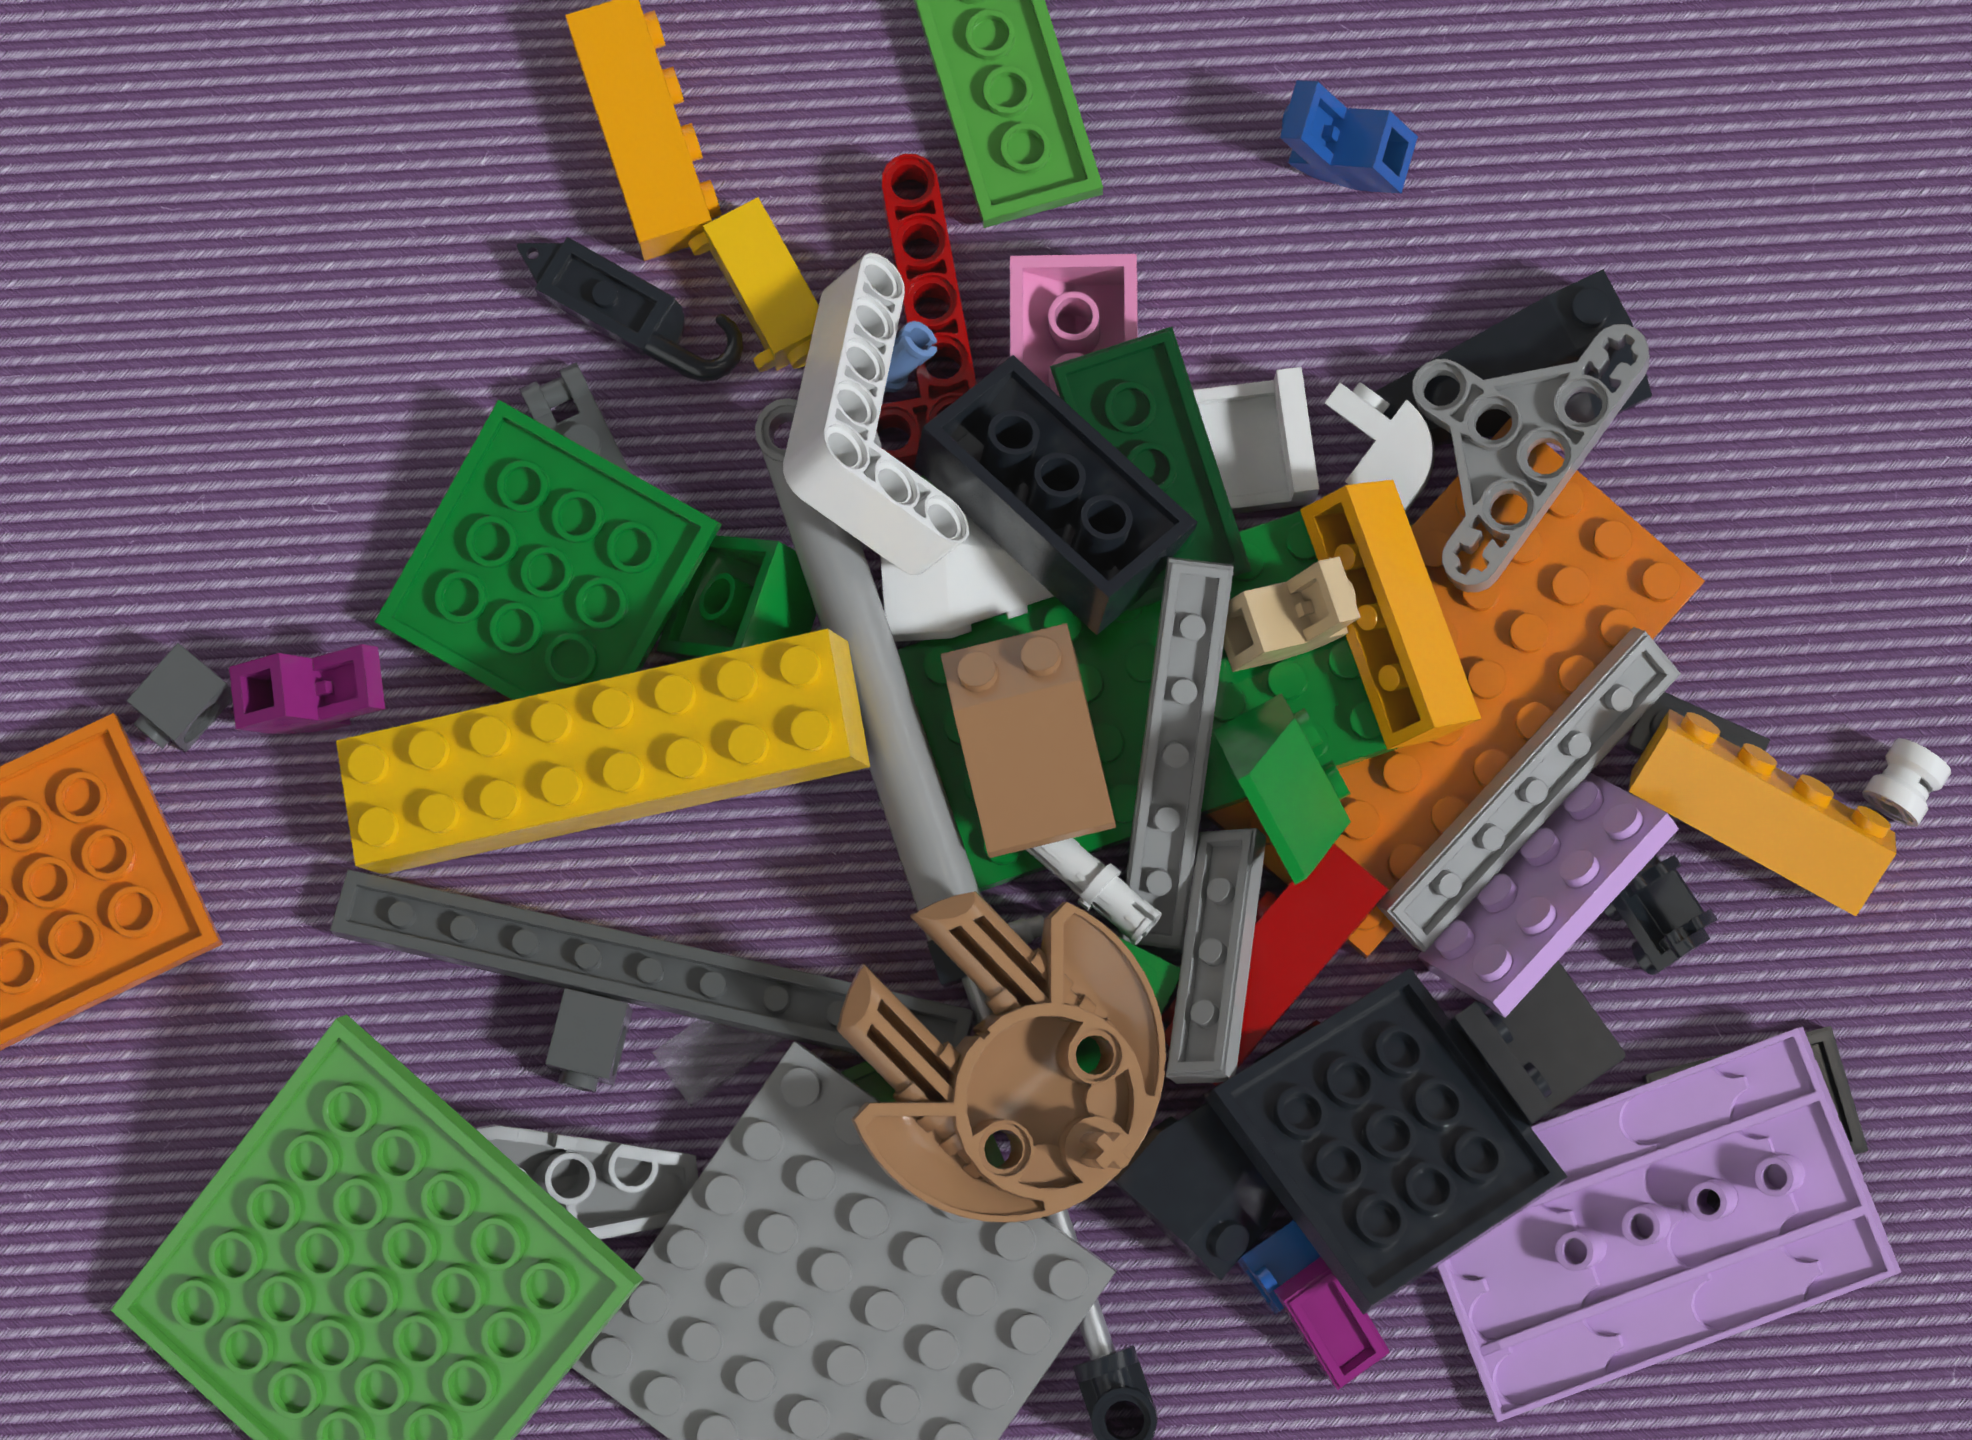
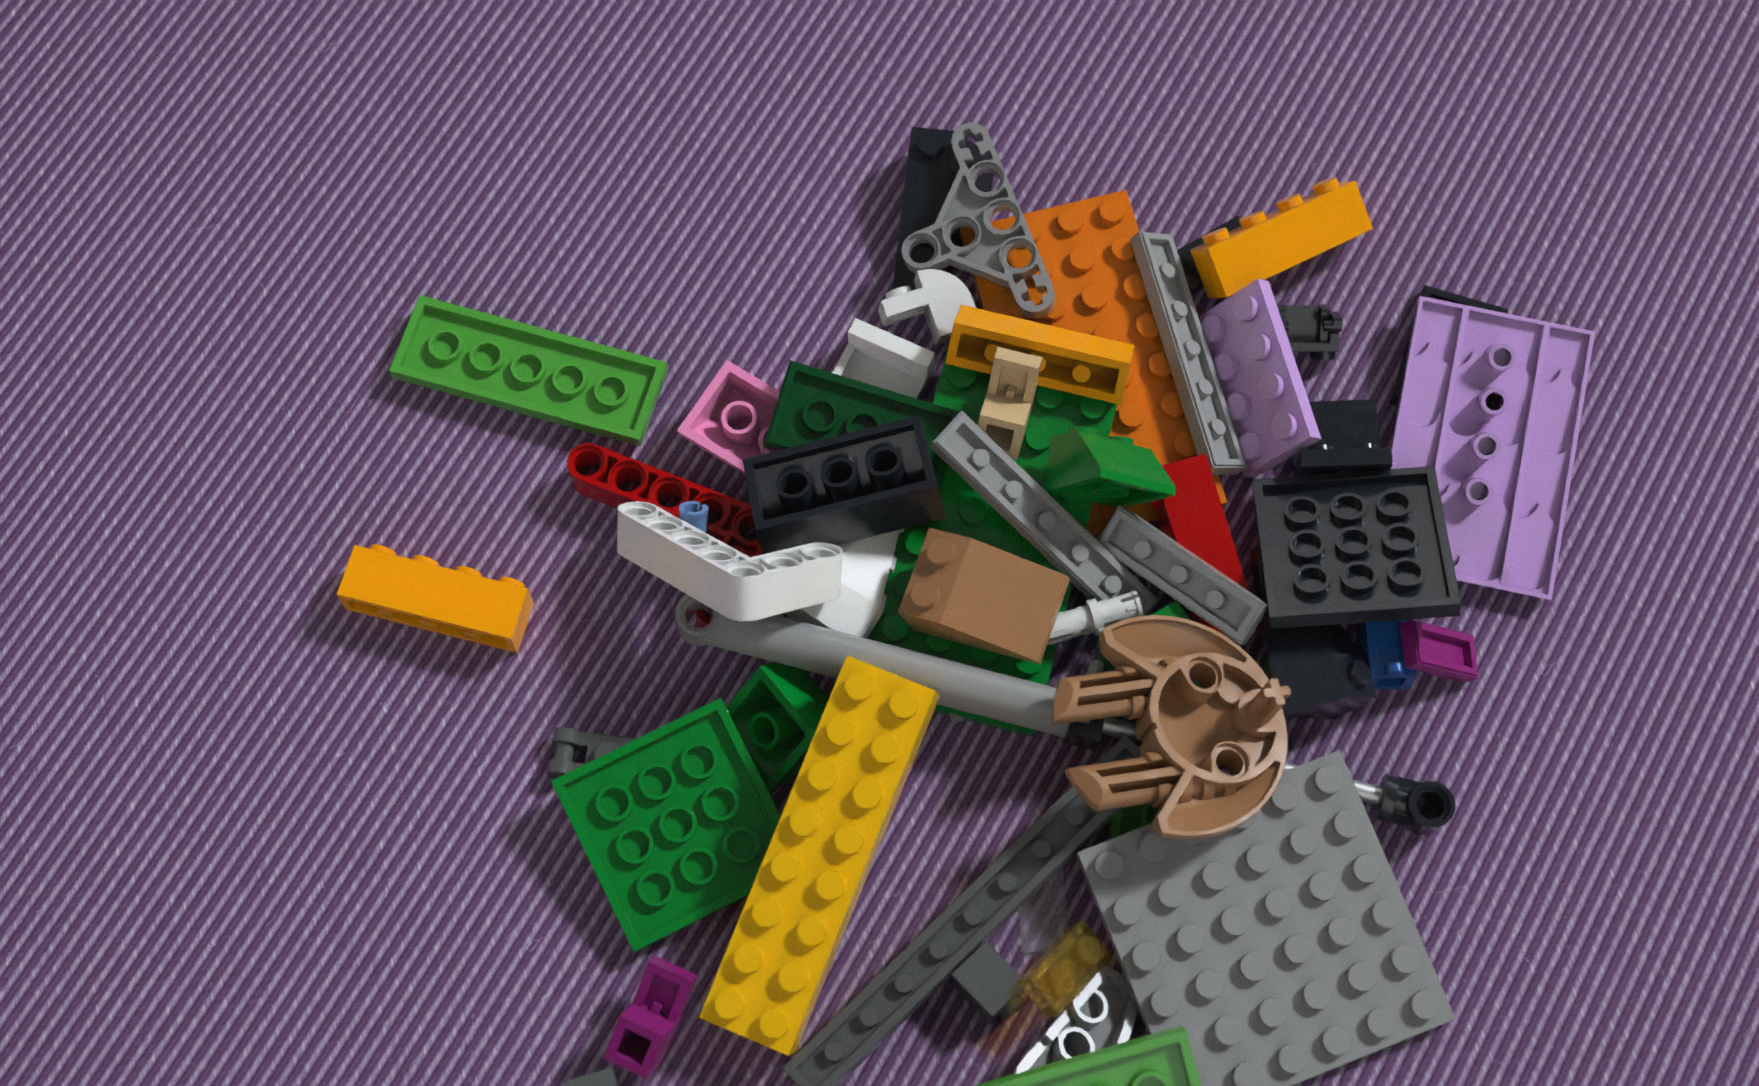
camera: 55 degrees left, 10 degrees down
(624, 307) = (540, 679): black plate -> none
(656, 1113) = (1065, 969): none -> clear yellow plate
(763, 282) = (588, 586): yellow brick -> none
(1345, 144) = (739, 217): blue brick -> none
(1906, 782) = (1308, 160): white wheel -> none

